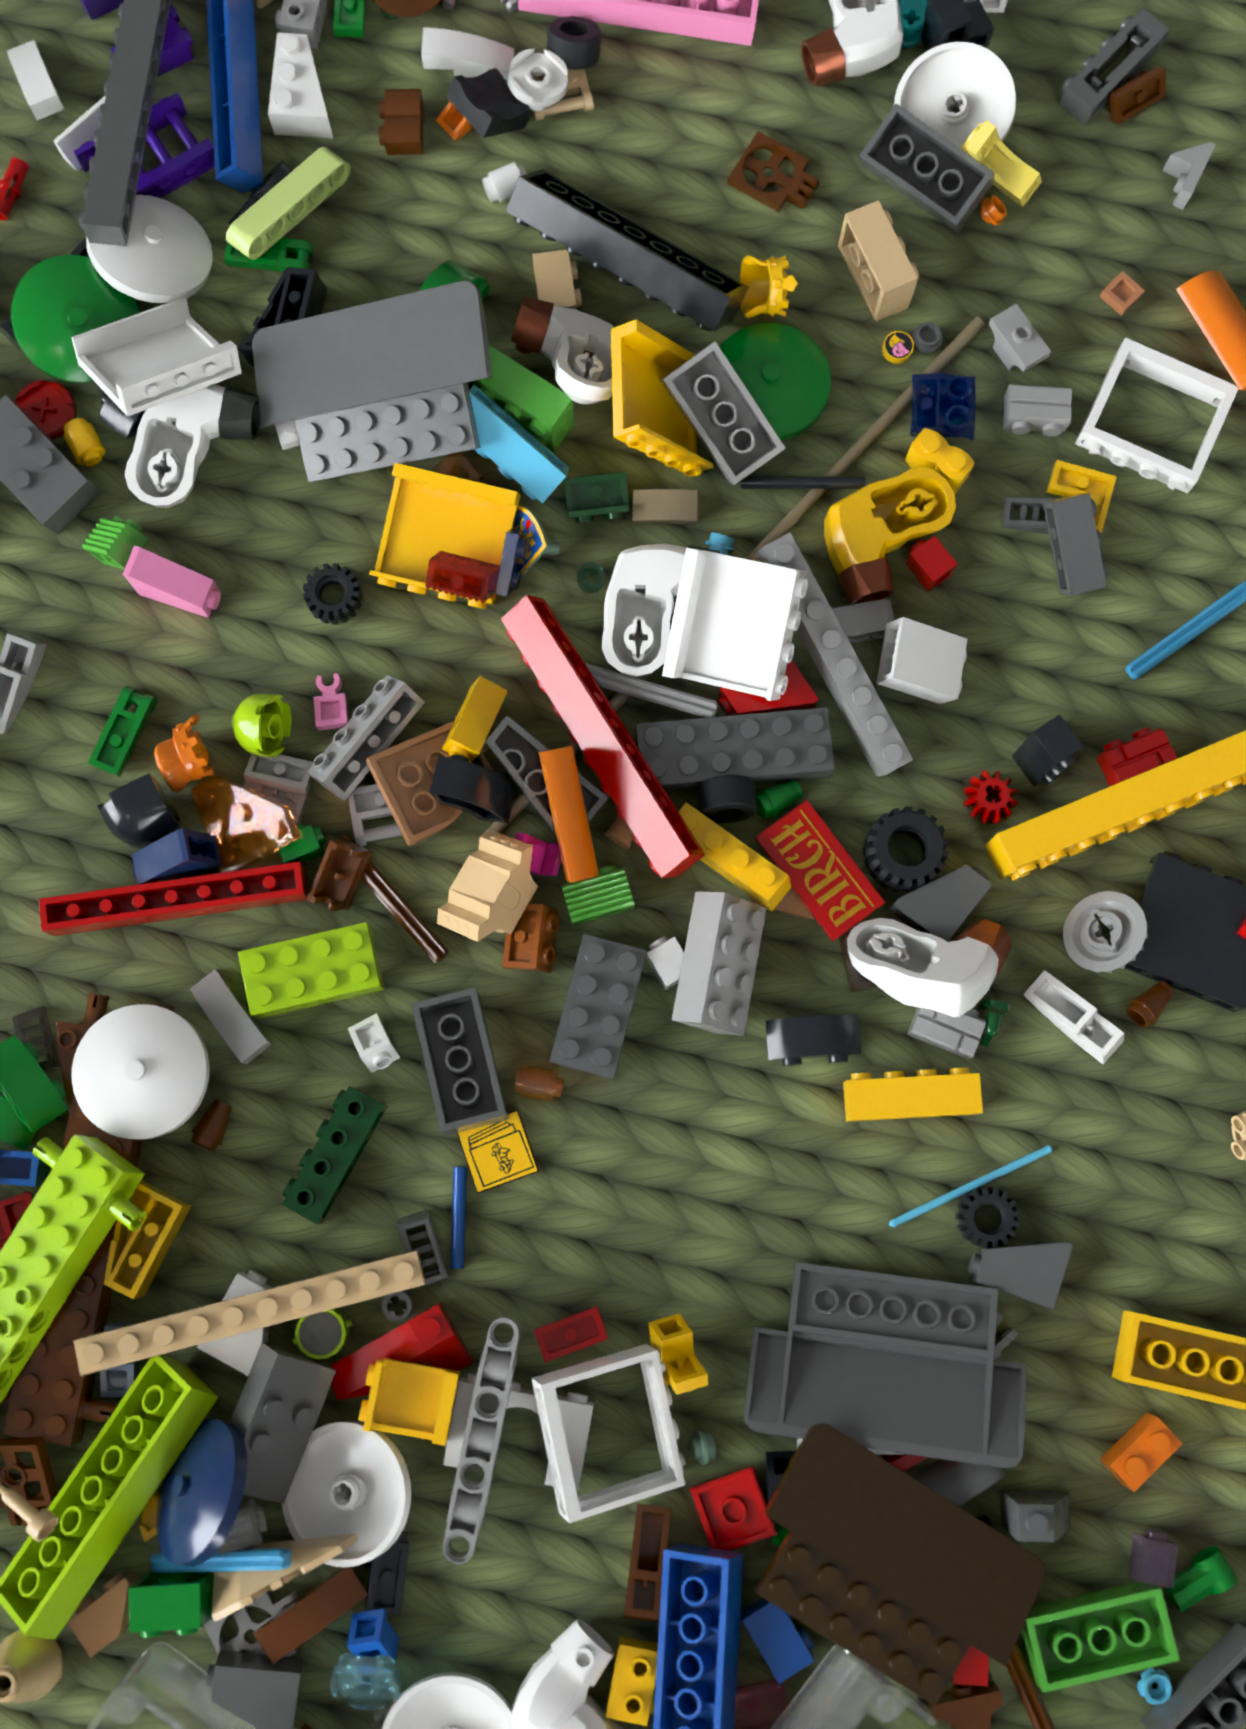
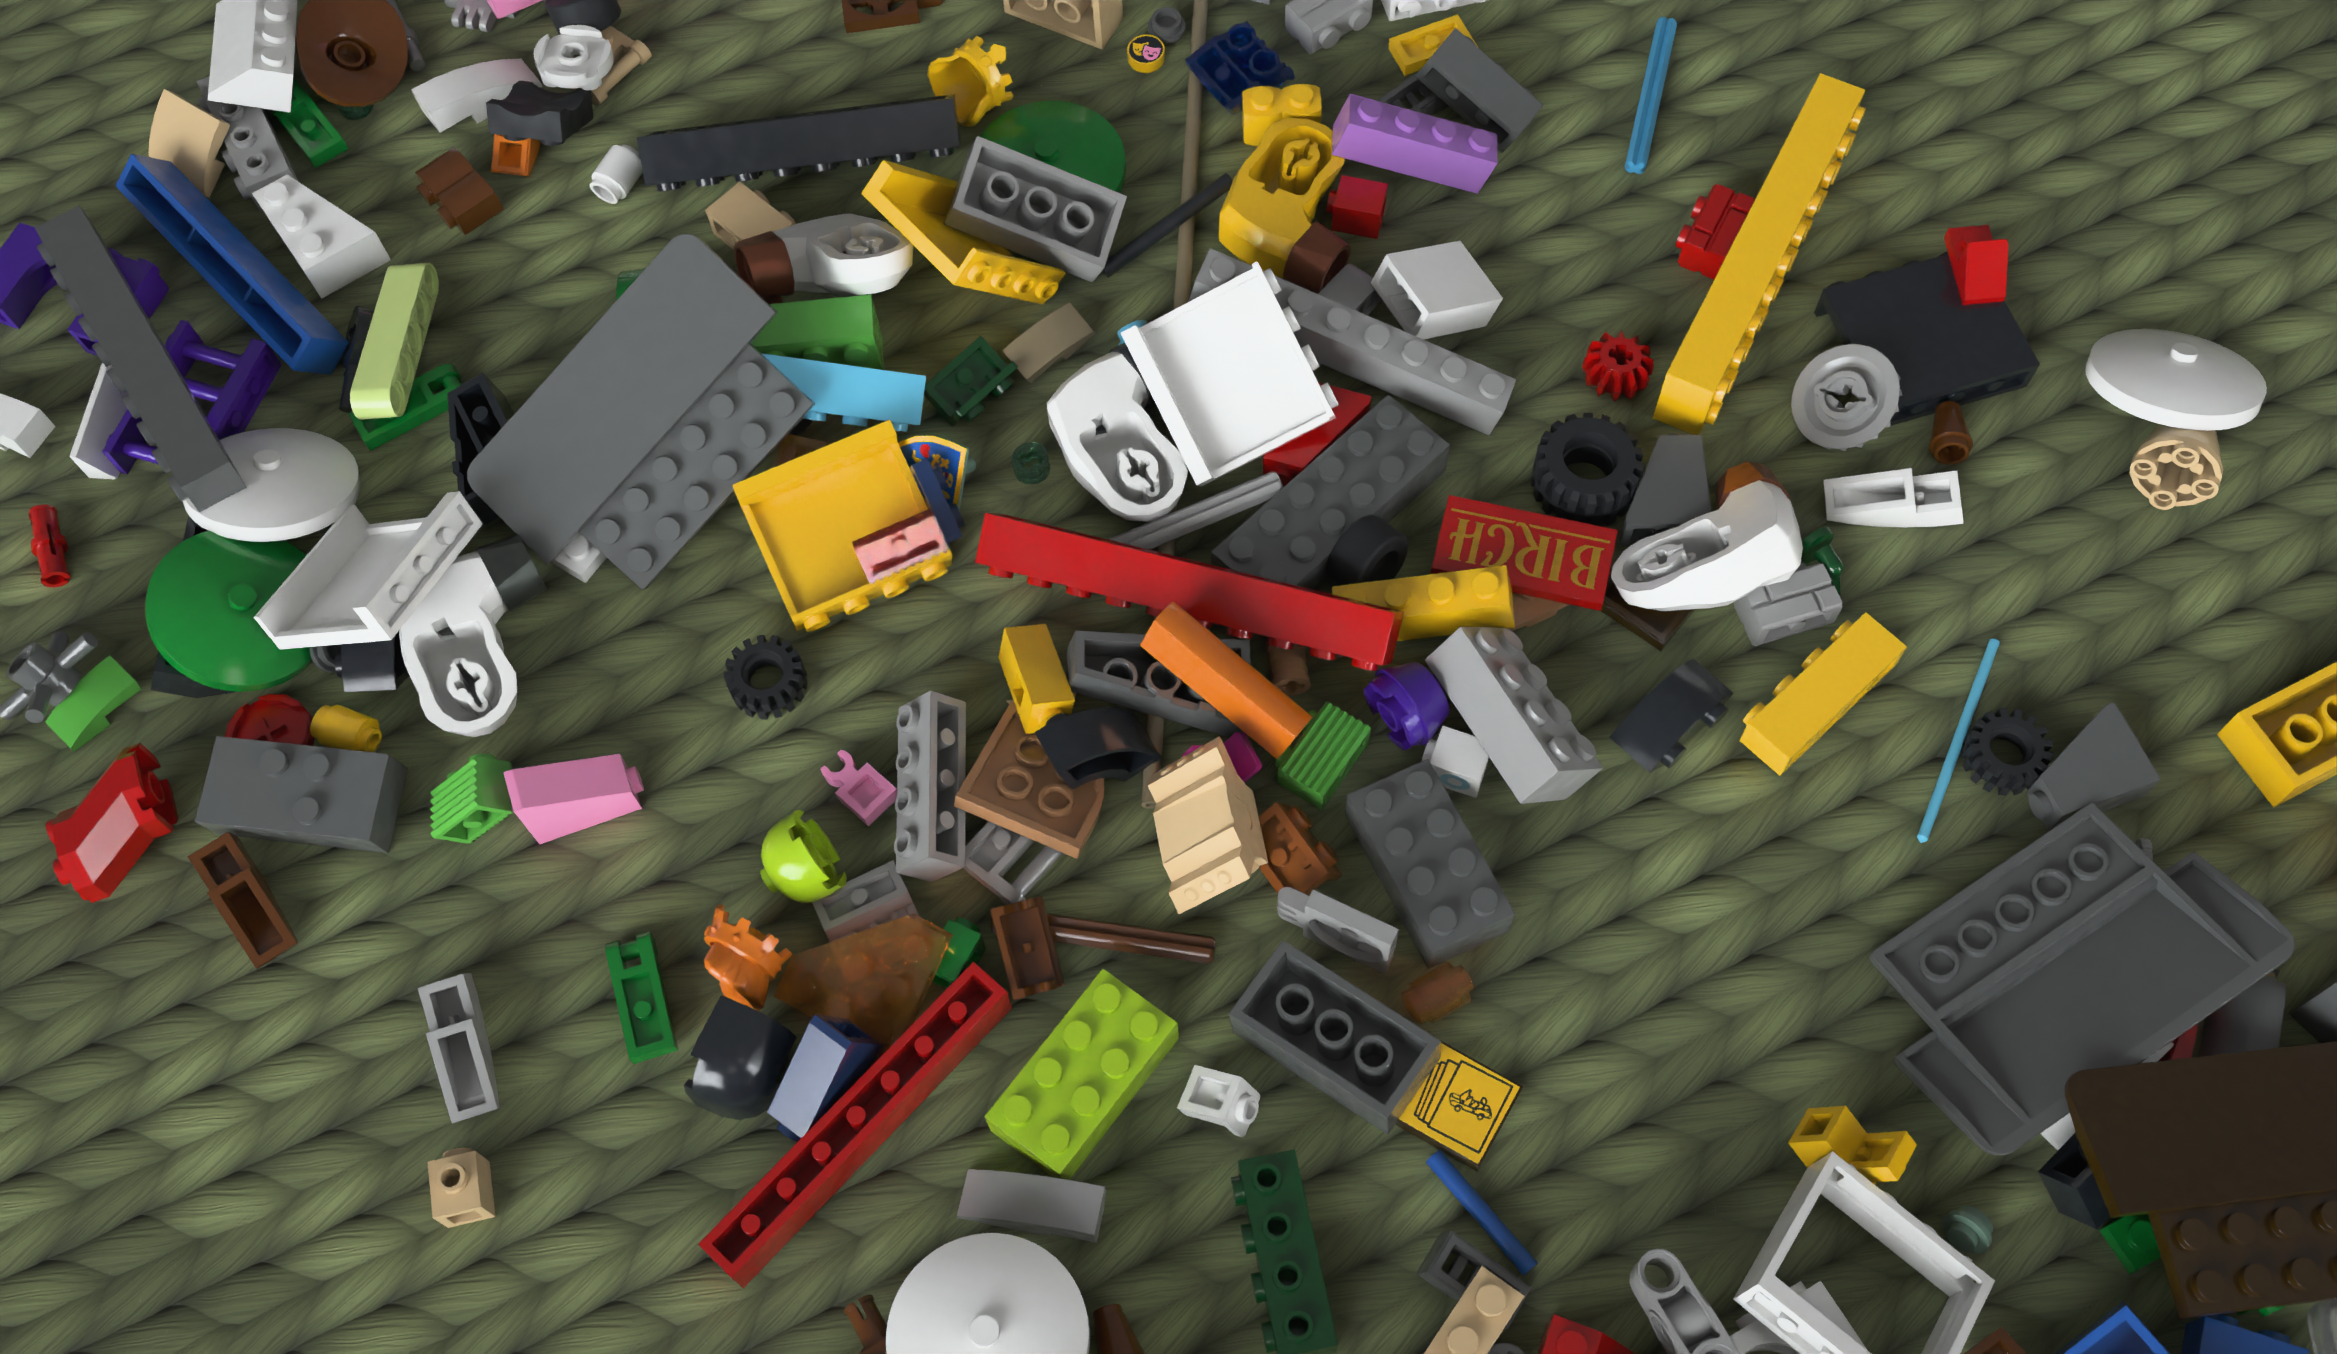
camera: 35 degrees left, 15 degrees down
(512, 1003) = (1340, 927): none -> light grey piece
(571, 1334) = (1719, 1231): red plate -> none
(668, 907) = (1408, 702): none -> dark purple cone
(733, 1509) = (2064, 1268): red tile -> none
(777, 798) = (1417, 522): green cone -> none
(996, 551) = (1414, 143): none -> medium lavender brick
(1048, 751) = (1638, 274): black wedge -> none

